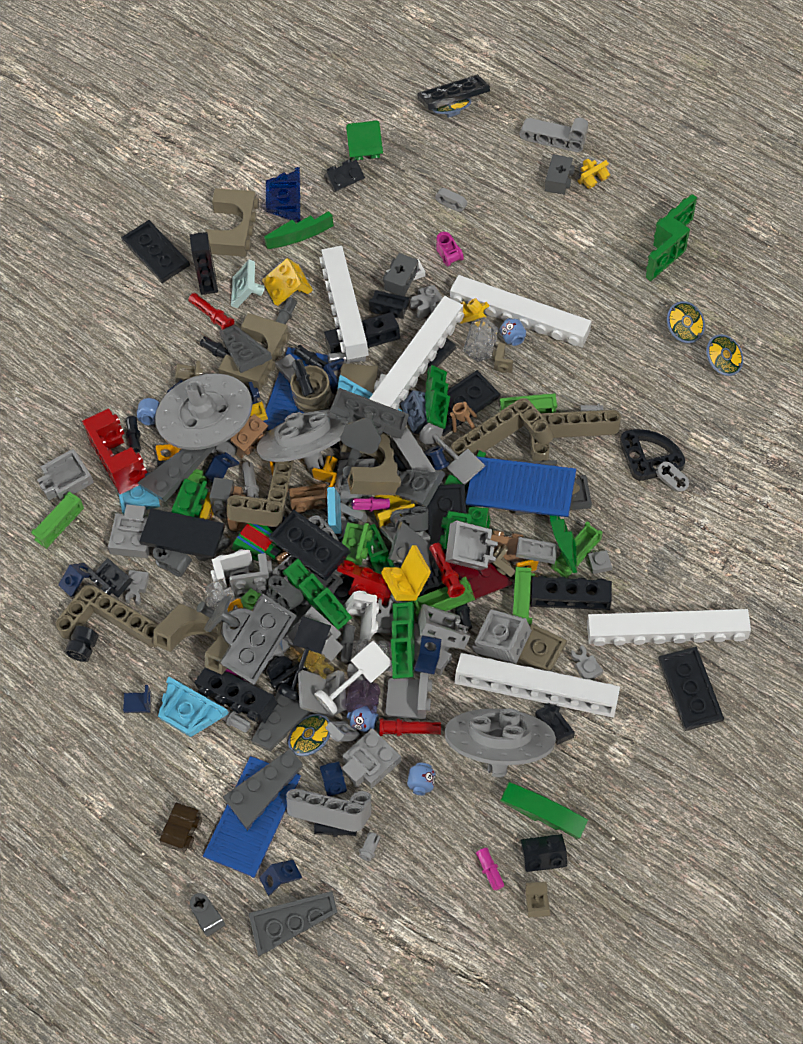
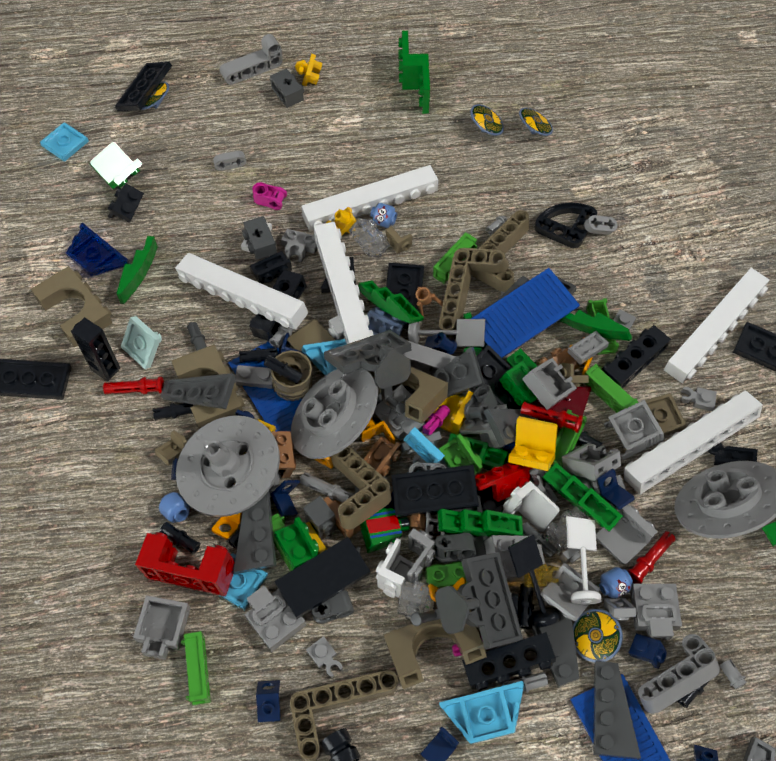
camera: 50 degrees left, 0 degrees up
(111, 577) = (301, 670): black bracket -> none
(285, 281) = (170, 316): yellow bracket -> none
(354, 94) = (64, 141): none -> medium azure tile
(362, 694) = (600, 568): clear purple bracket -> none
(421, 778) = (707, 585): medium blue head -> none

